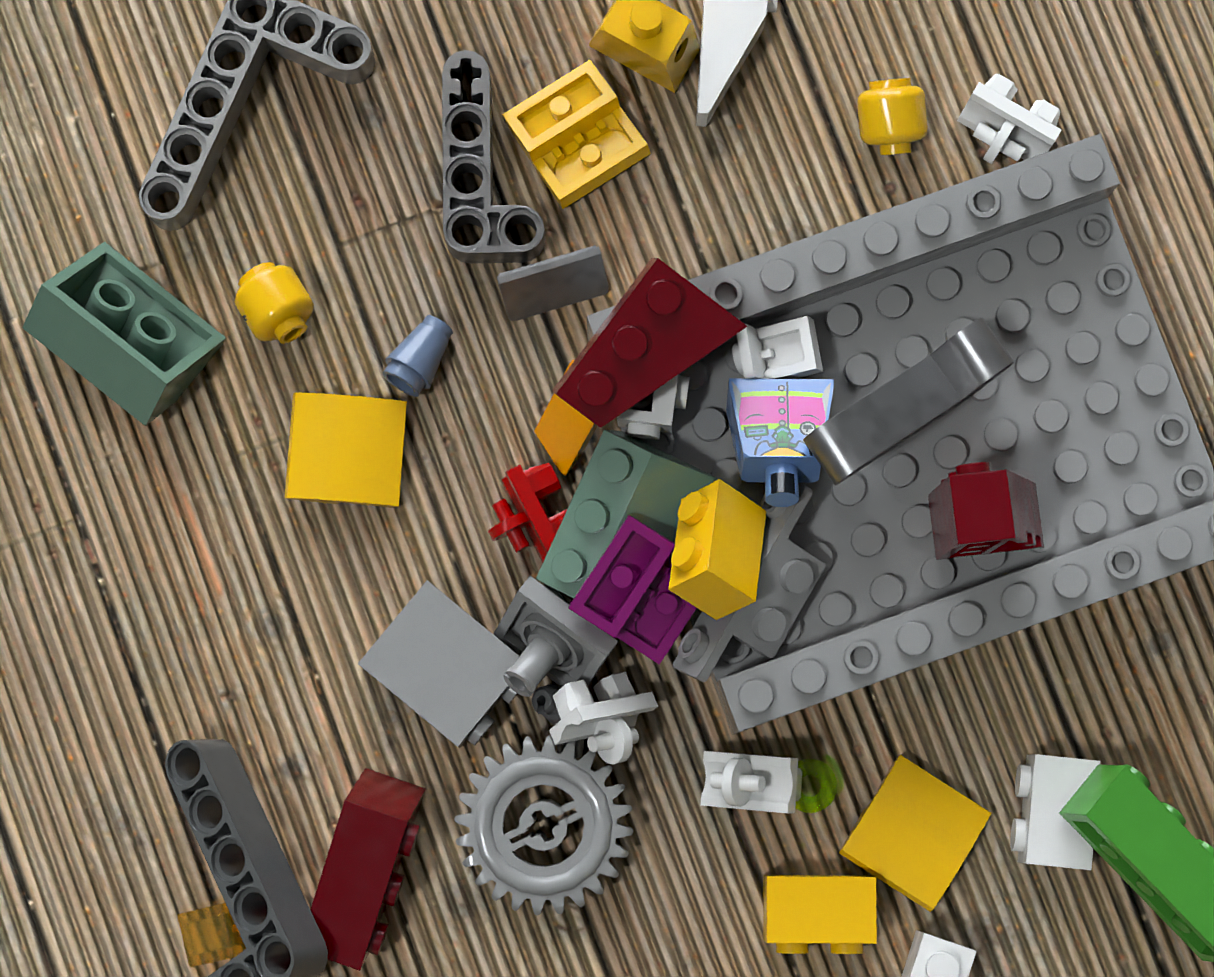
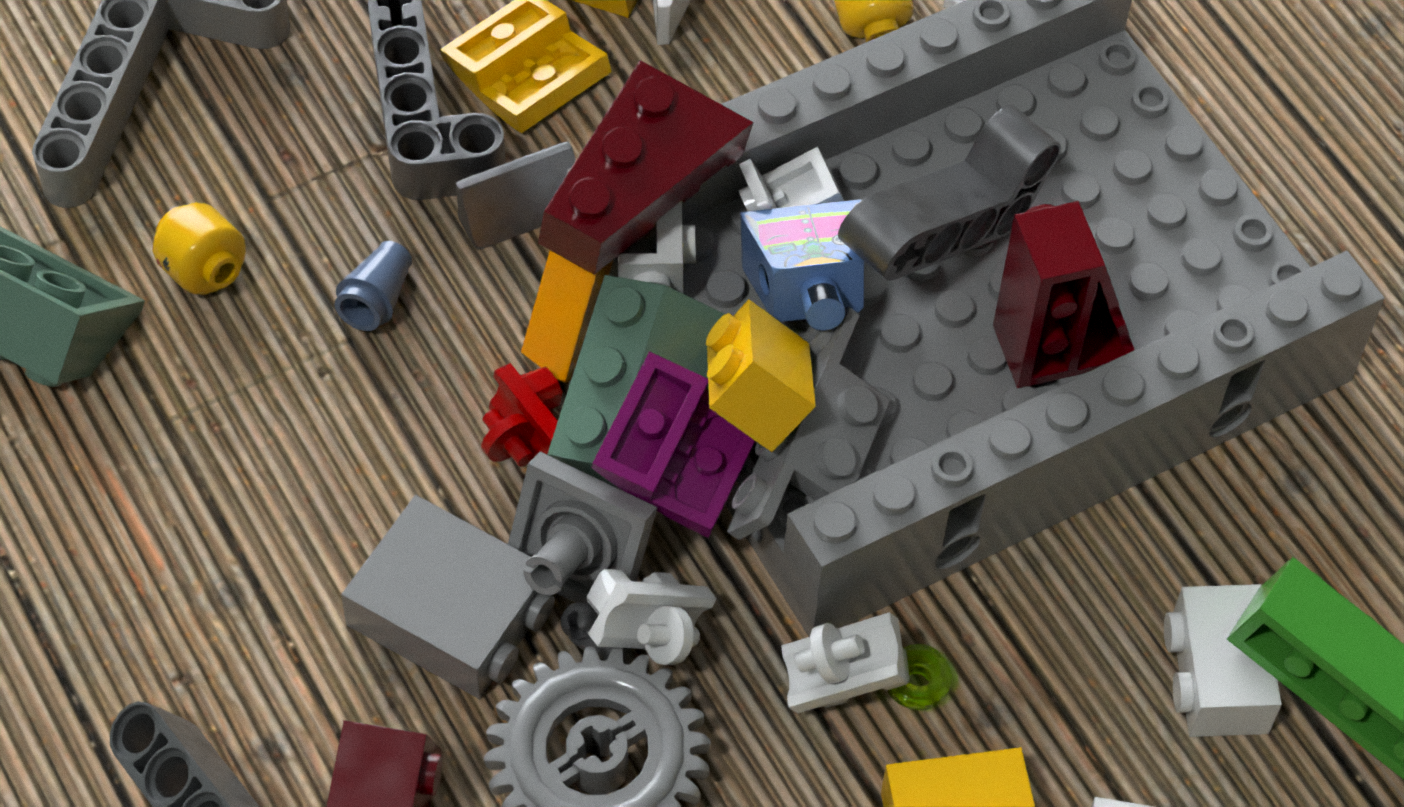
camera: 10 degrees left, 25 degrees down
(345, 449) = (299, 390): yellow slope -> none
(915, 833) = (1058, 708): yellow slope -> none

